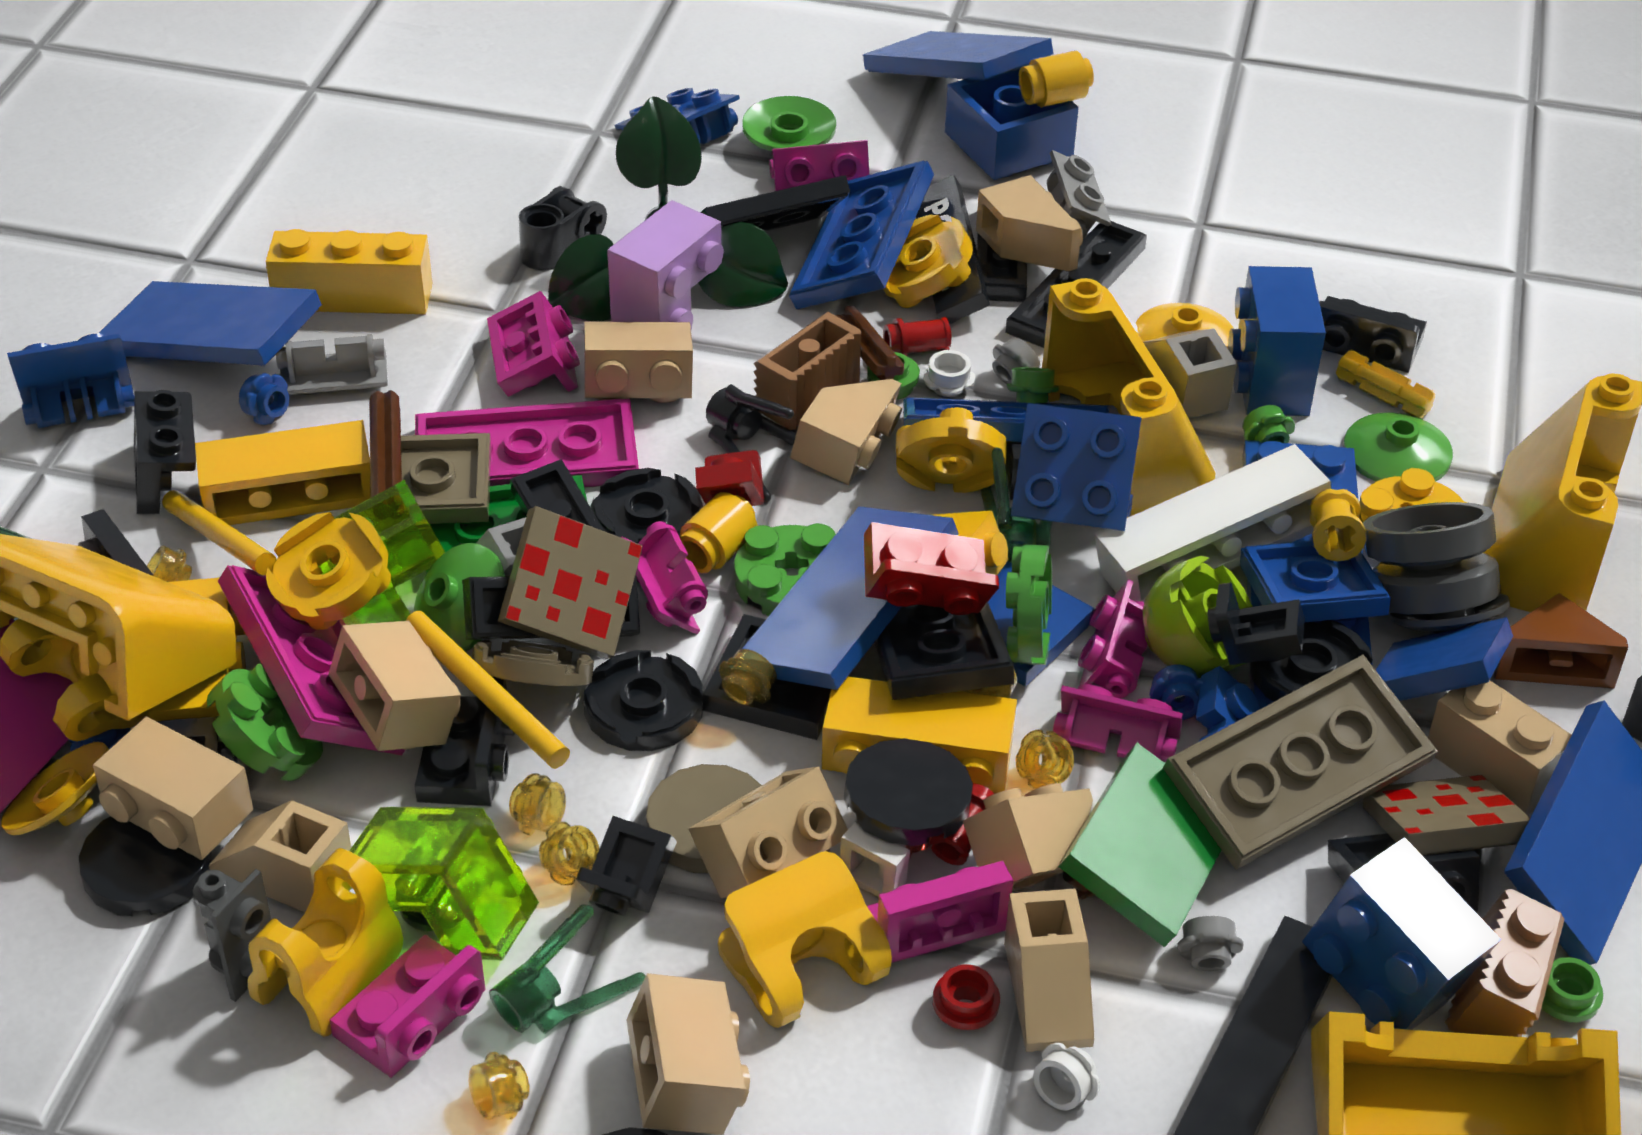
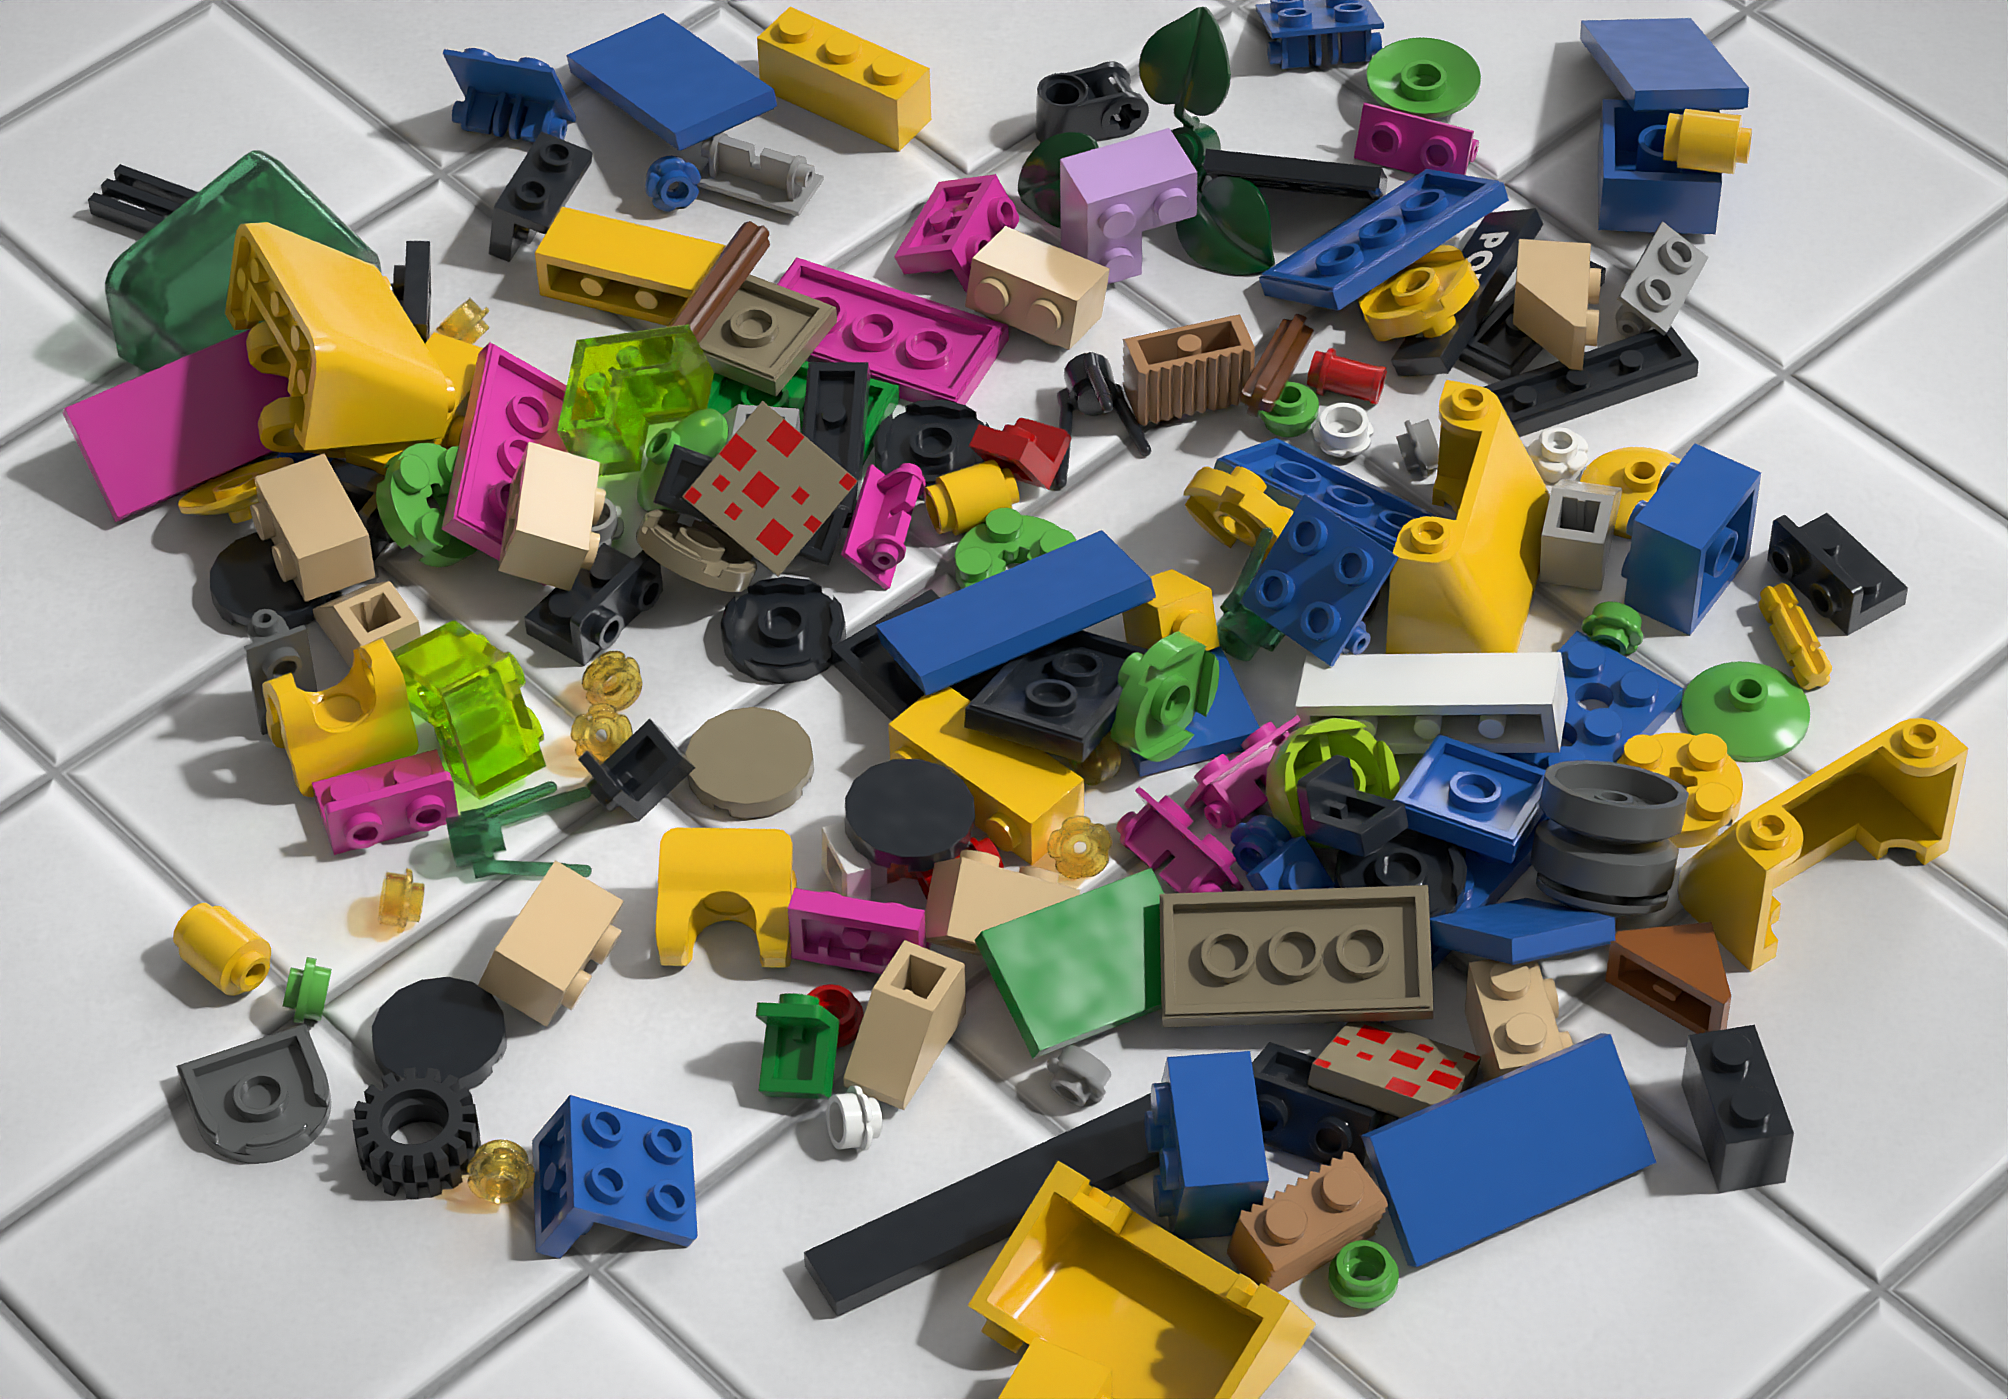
camera: 35 degrees right, 5 degrees up
(219, 532) = (523, 305): yellow bar -> none
(342, 591) = (538, 387): yellow plate -> none
(490, 692) = (626, 556): yellow bar -> none
(747, 677) = (869, 649): clear yellow plate -> none
(769, 829) = (772, 792): tan brick -> none
(845, 427) = (1175, 438): tan slope -> none
(926, 569) = (1078, 616): bracket -> none
(976, 1037) = (797, 1048): none -> green bracket
(1032, 384) = (1407, 477): bright green plate -> none
(1337, 525) = (1529, 768): yellow bush -> none

